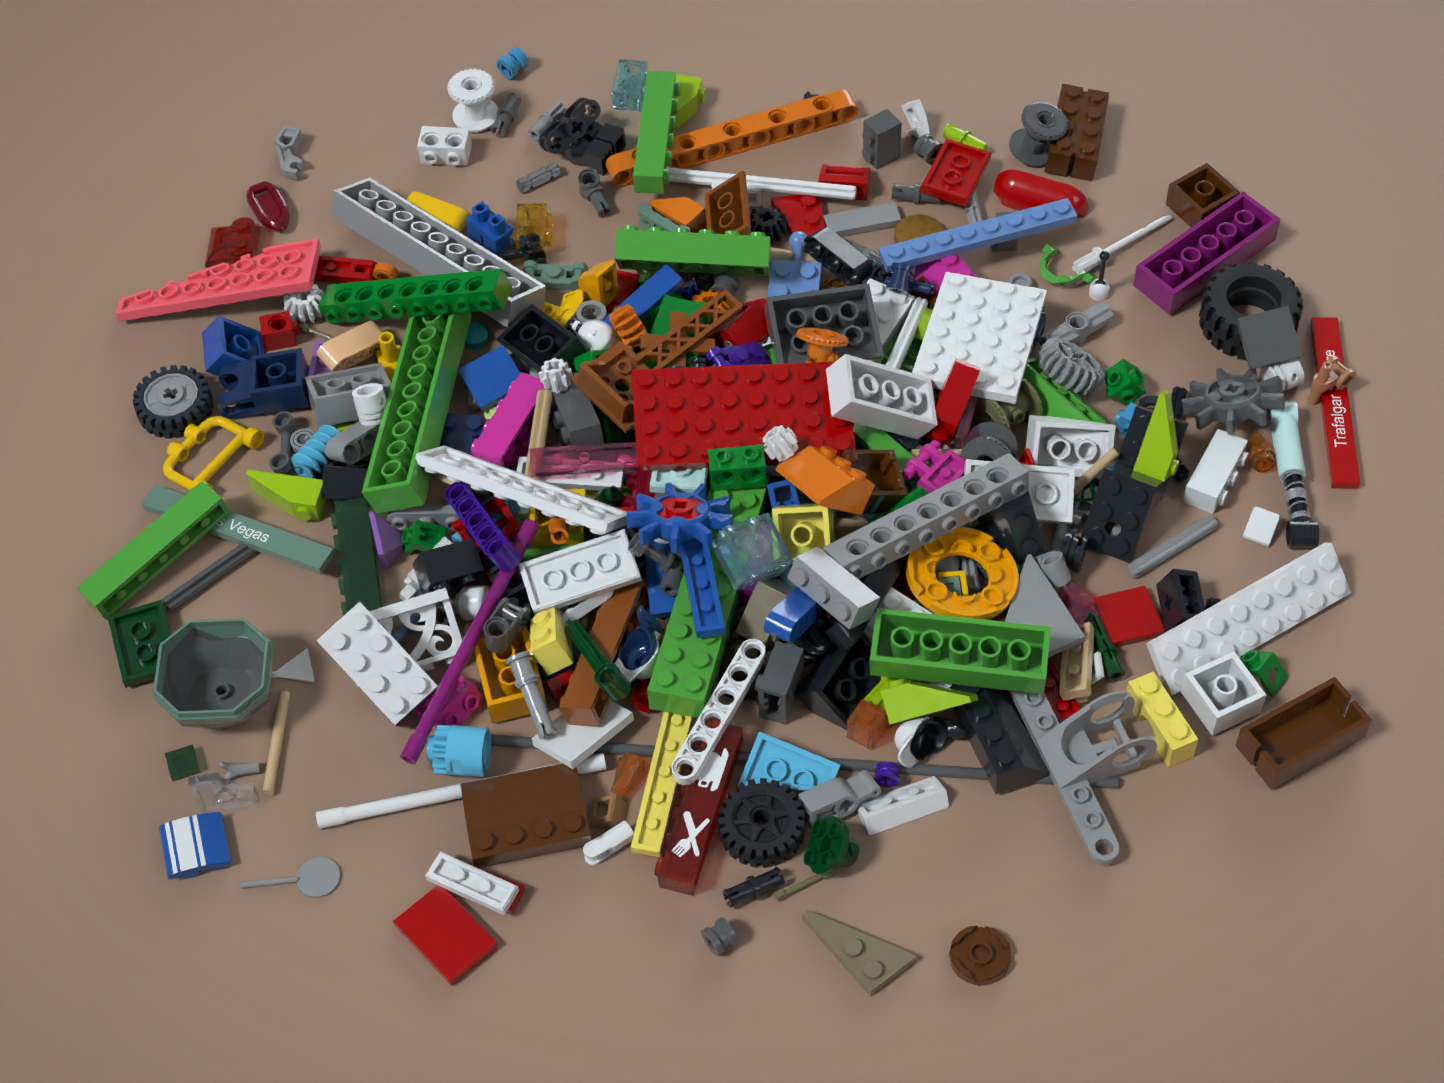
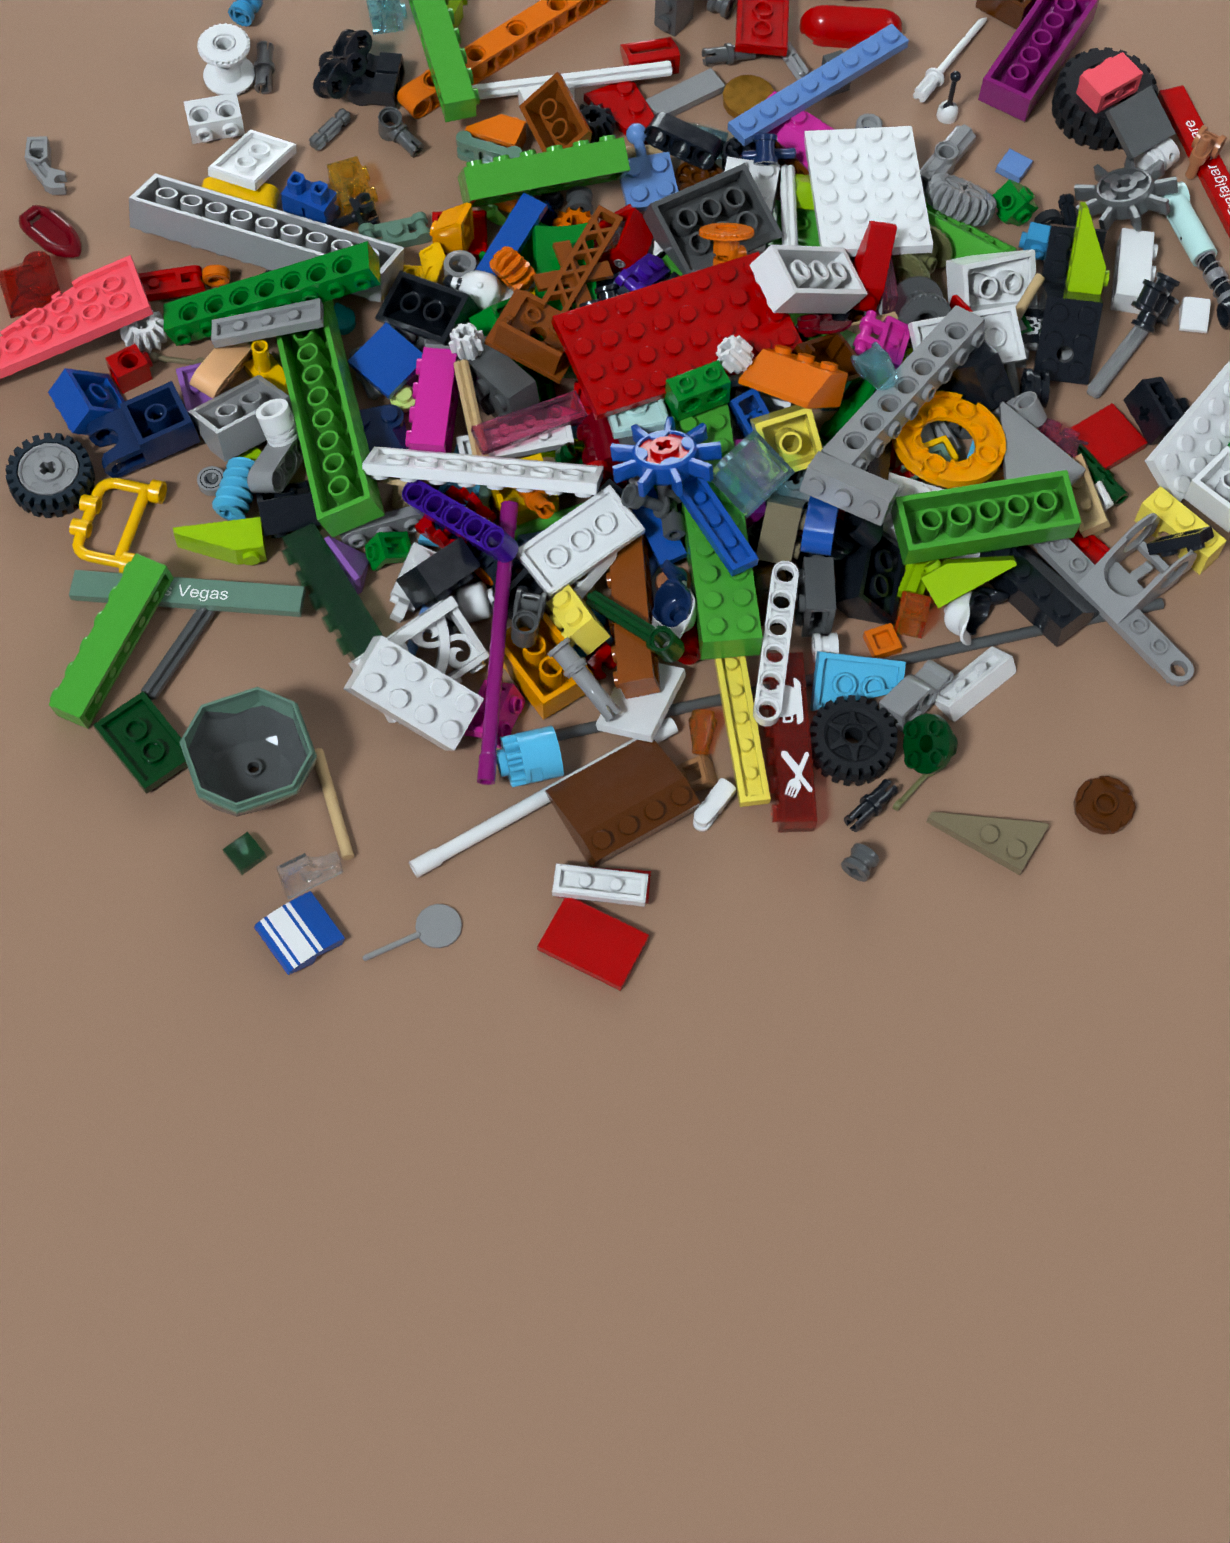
camera: 25 degrees left, 10 degrees up
(239, 769) = (308, 842): light grey bar -> none
(286, 426) = (186, 471): dark grey bar -> none
(298, 668) = (319, 720): white piece -> none
(399, 319) = (267, 323): none -> light grey plate
(458, 186) = (252, 160): none -> white tile
(545, 120) = (310, 65): light grey axle -> none
(774, 728) = (824, 644): none -> white wheel
(831, 742) = (882, 641): none -> orange tile
(877, 440) = (814, 324): none -> dark red plate
(887, 774) = (950, 657): dark purple bush -> none
(907, 488) = (876, 367): none -> clear light blue piece
(1063, 280) = (900, 112): bright green helmet -> none
(1140, 727) = (1191, 539): none -> black plate
(1142, 351) = (1014, 166): none -> medium blue tile
(1217, 502) = (1155, 302): none -> black axle
(1249, 294) = (1109, 82): none -> coral brick
(1260, 454) = (1169, 244): clear orange cone -> none

